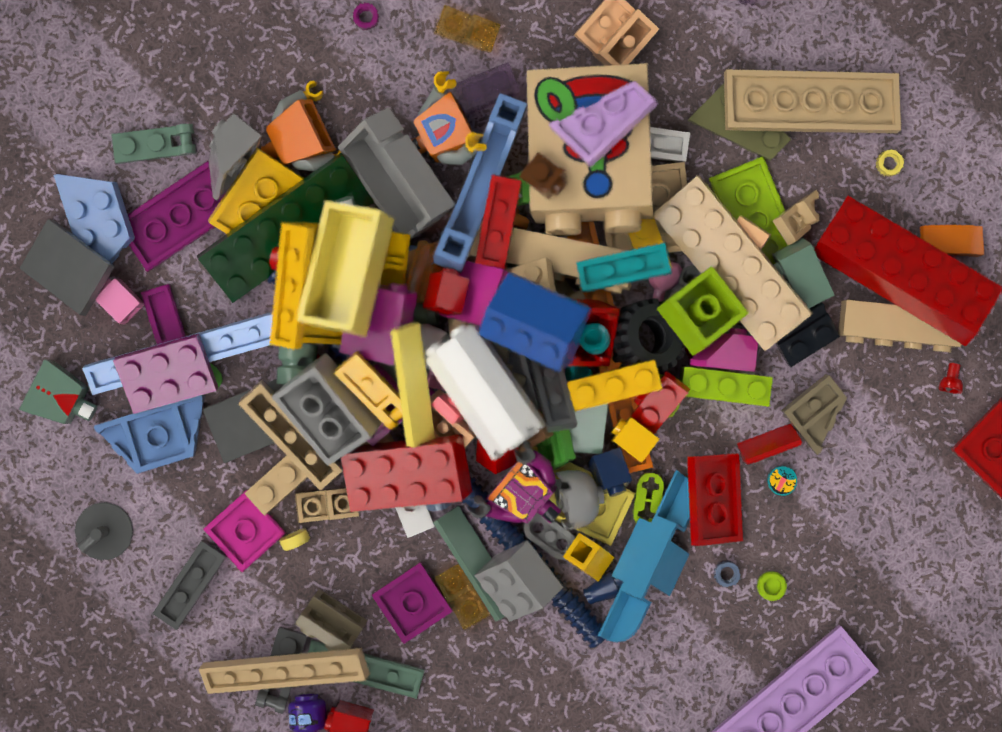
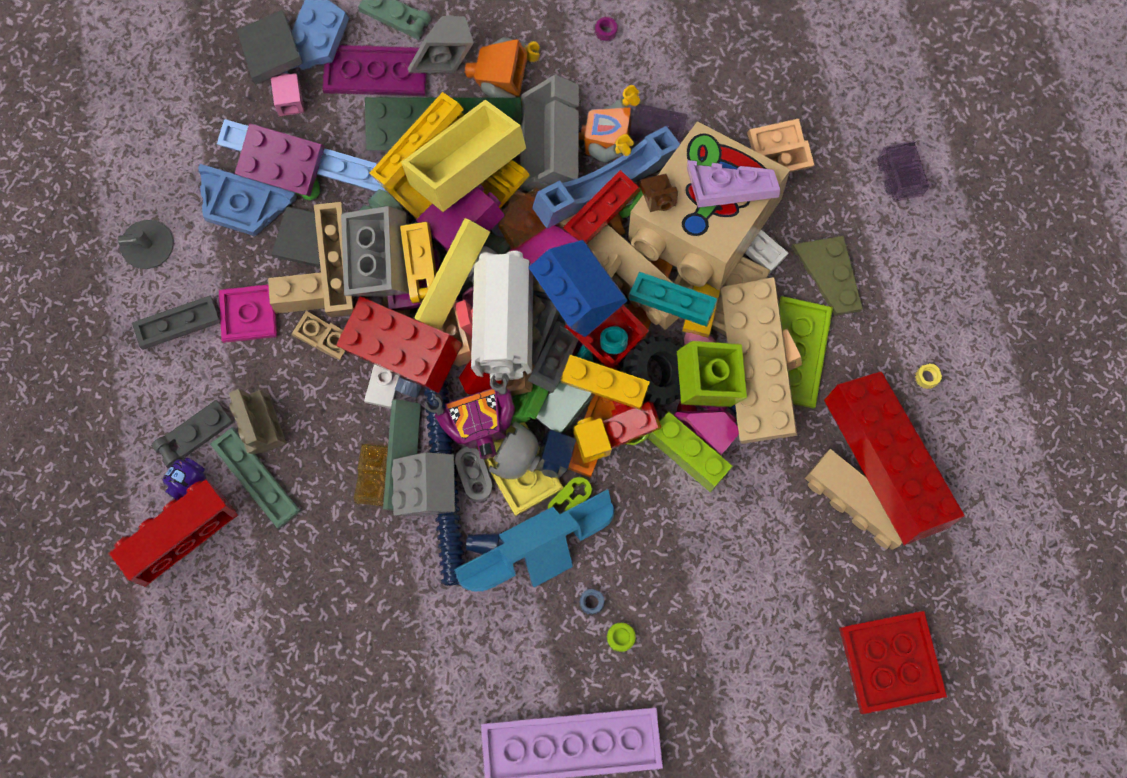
camera: 25 degrees right, 15 degrees down
(57, 395) = (191, 126): sand green torso -> none
(163, 314) = (312, 122): magenta tile -> none
(253, 189) = (447, 76): yellow plate -> none
(284, 671) = (194, 427): tan plate -> none
(294, 539) = (279, 342): light yellow tile -> none
(412, 602) = (330, 451): magenta plate -> none
(446, 292) = (526, 231): red brick -> none
(467, 29) = (670, 81): clear yellow slope -> none
(588, 557) = (491, 508): yellow brick -> none
(715, 499) = (622, 532): red plate -> none
(769, 444) = (694, 523): red slope -> none
(782, 480) = (685, 558): tile -> none
(798, 218) = (830, 368): tan slope -> none
(803, 272) = (810, 407): sand green brick -> none
(808, 336) = (780, 457): black plate -> none
(812, 101) = (897, 290): tan plate -> none
(816, 411) = (748, 522): dark tan wing -> none
(952, 380) = (874, 573): red piece -> none
(955, 239) = (951, 467): orange slope -> none

